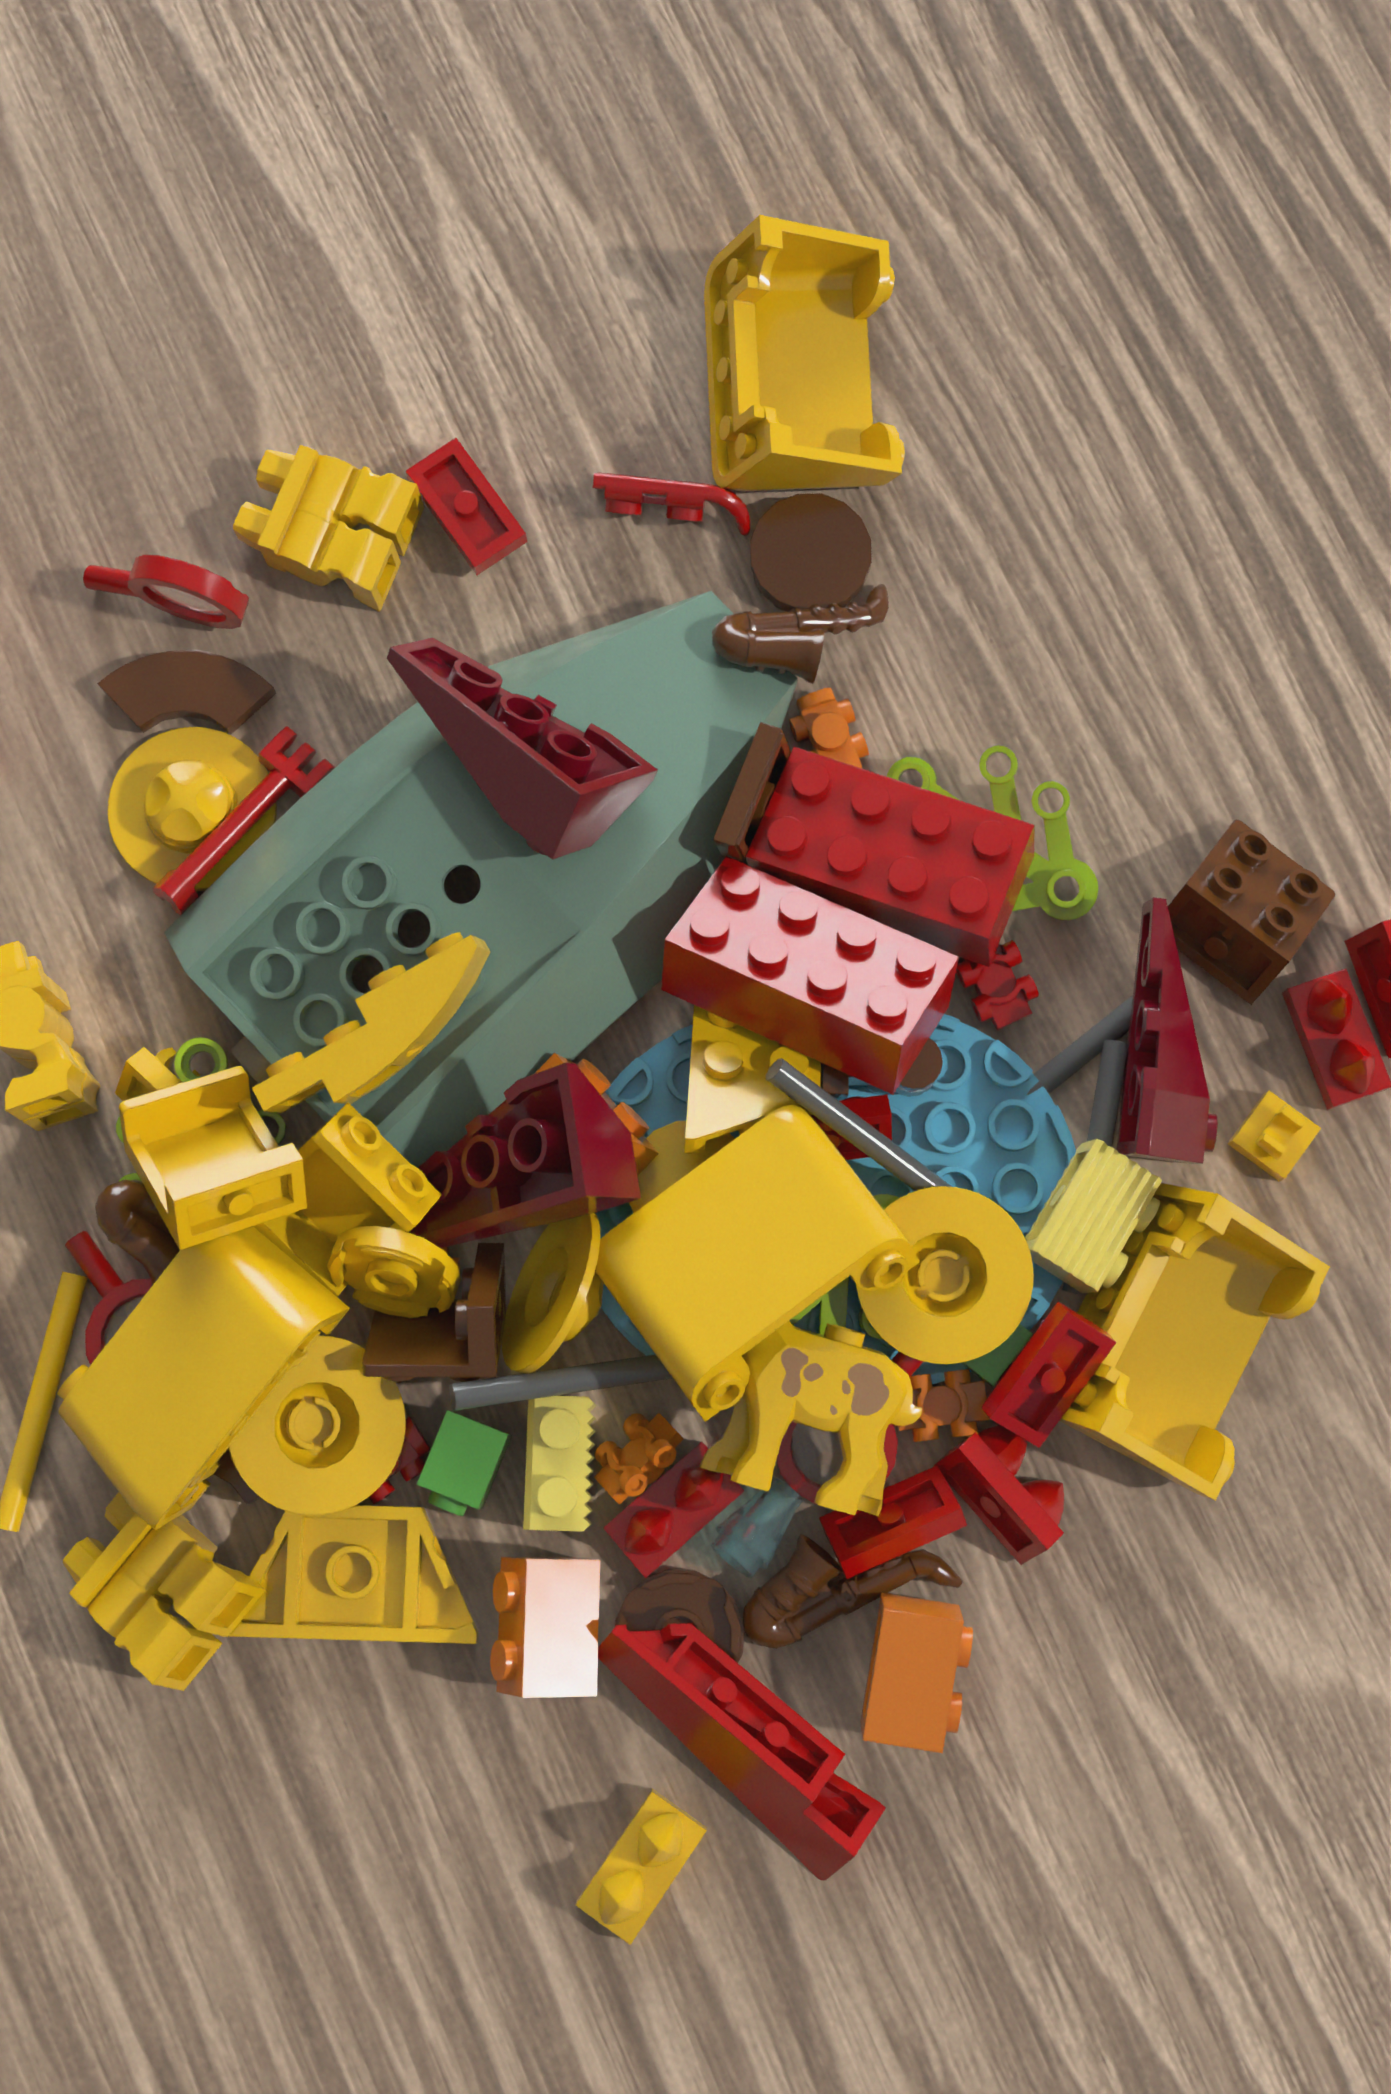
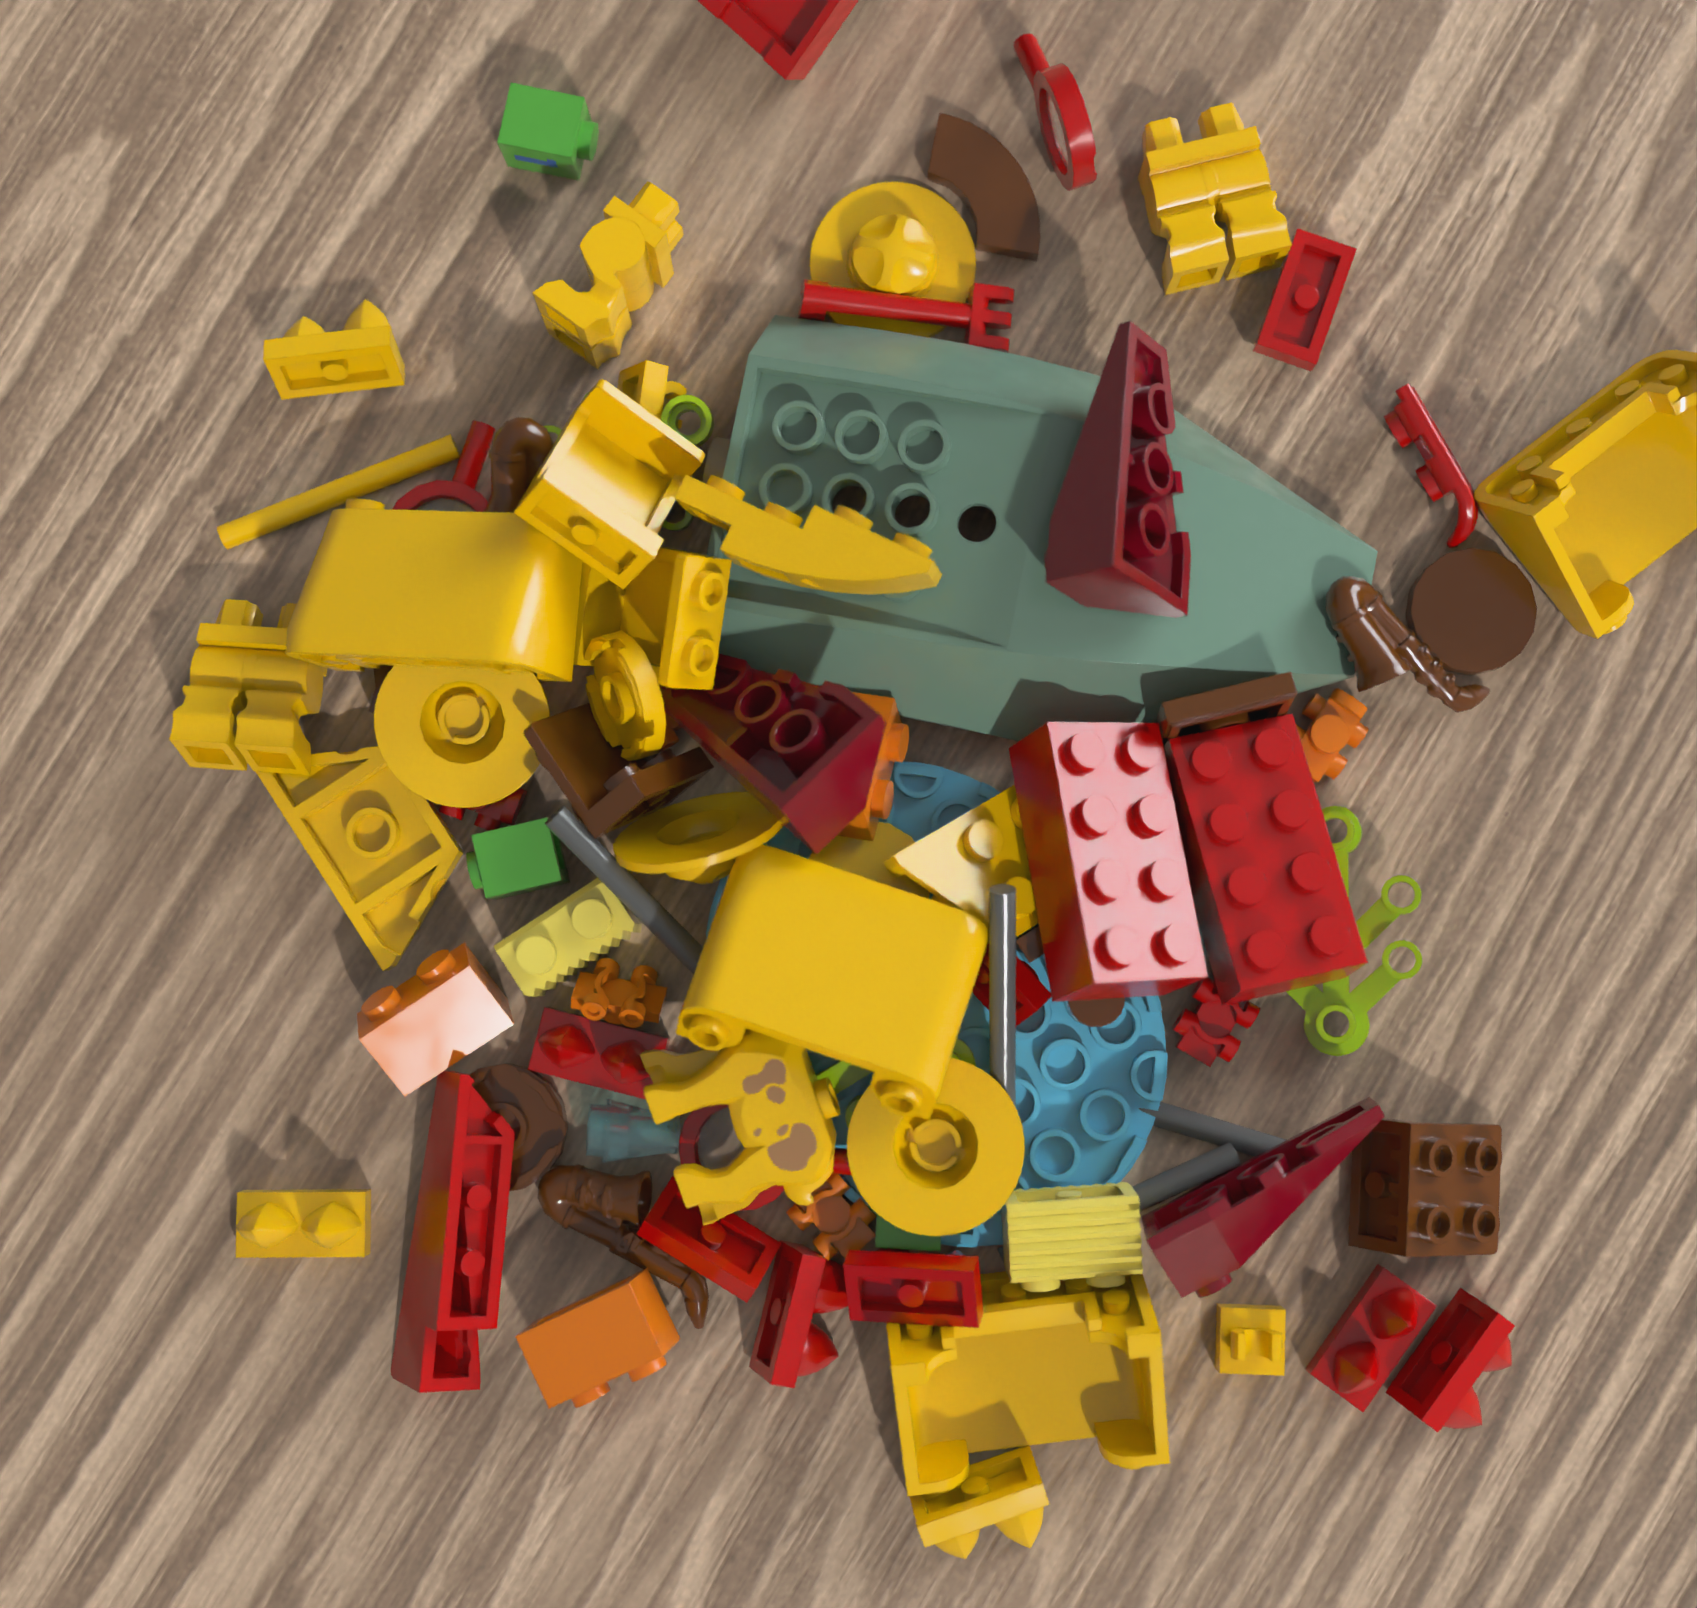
camera: 60 degrees right, 5 degrees up
(1261, 1425) = (997, 1492): none -> yellow tile

